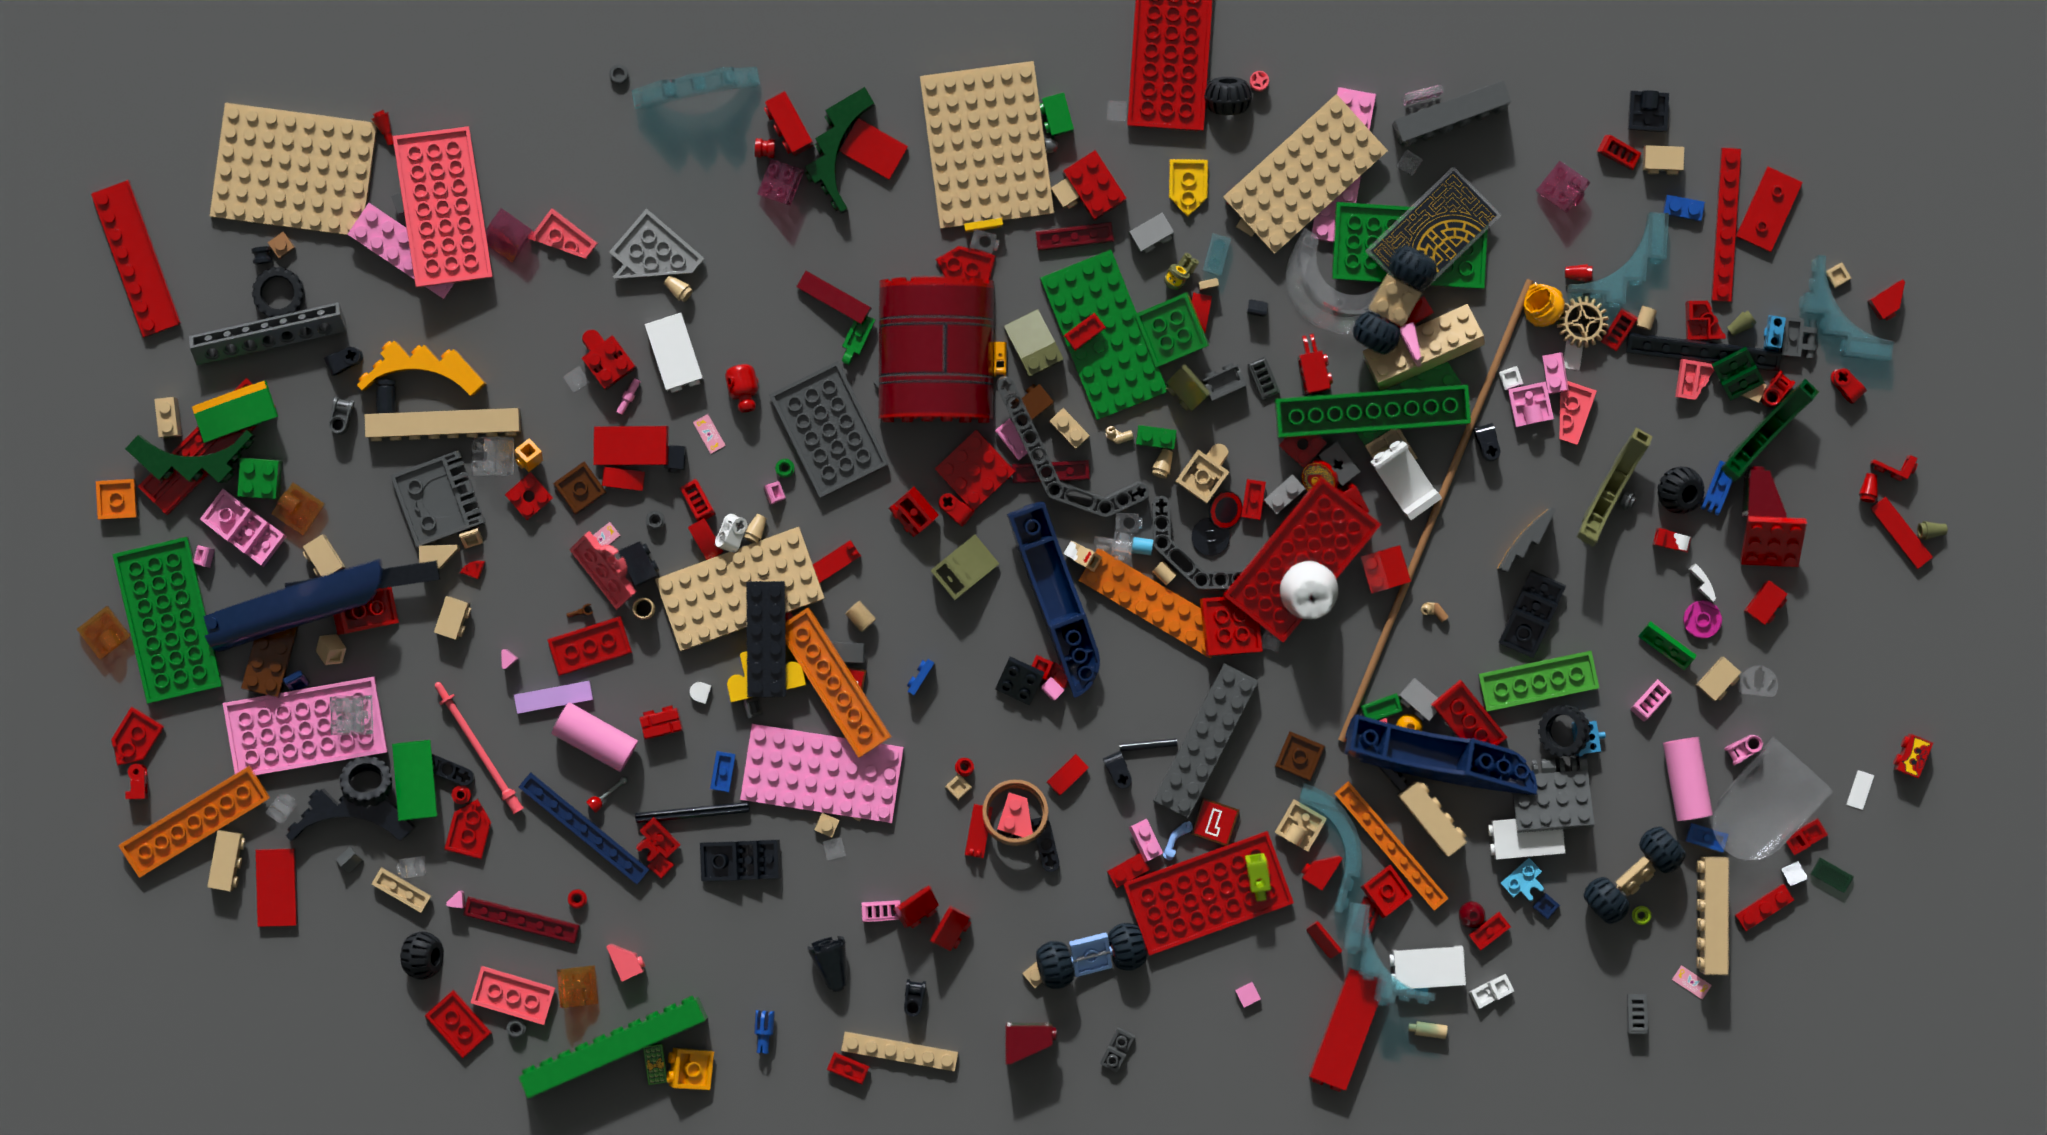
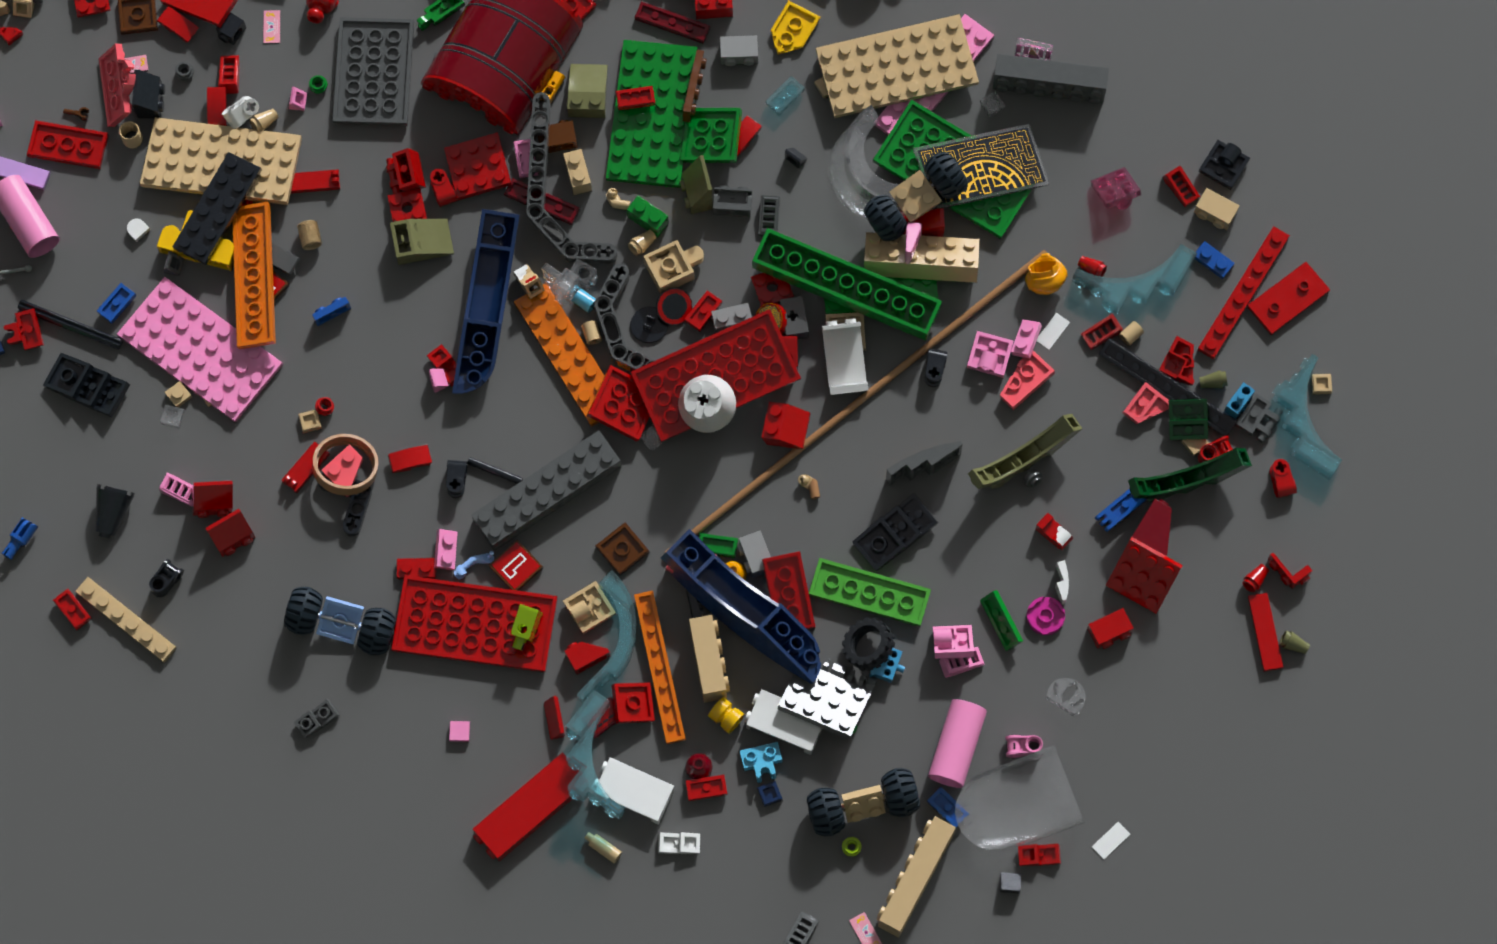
camera: 25 degrees right, 15 degrees down
(660, 723) = (88, 236): red brick -> none
(660, 865) = (16, 355): red tile -> none
(946, 543) = (400, 200): none -> red piece
(1019, 680) = (414, 357): black plate -> none
(1027, 1039) = (240, 663): dark red slope -> none
(1032, 975) = (278, 615): tan plate -> none
(1134, 298) = (693, 91): none -> reddish brown plate
(1178, 274) = (742, 94): olive piece -> none
(1207, 284) = (764, 115): tan tile -> none
(1314, 368) = (816, 224): red brick -> none
(1473, 858) = (724, 713): none -> yellow wheel
(1510, 378) = (985, 324): white tile -> none
(1583, 330) = (1080, 310): tan gear -> none
(1636, 688) = (953, 641): none -> bright pink plate
(1681, 490) = (1087, 502): black wheel -> none
(1718, 679) = (1032, 673): tan brick -> none
(1764, 907) = (967, 898): red plate -> none
(1831, 875) = (1045, 902): clear green tile -> none
(1888, 301) = (1354, 425): red slope -> none
(1913, 755) = (1175, 832): brick -> none

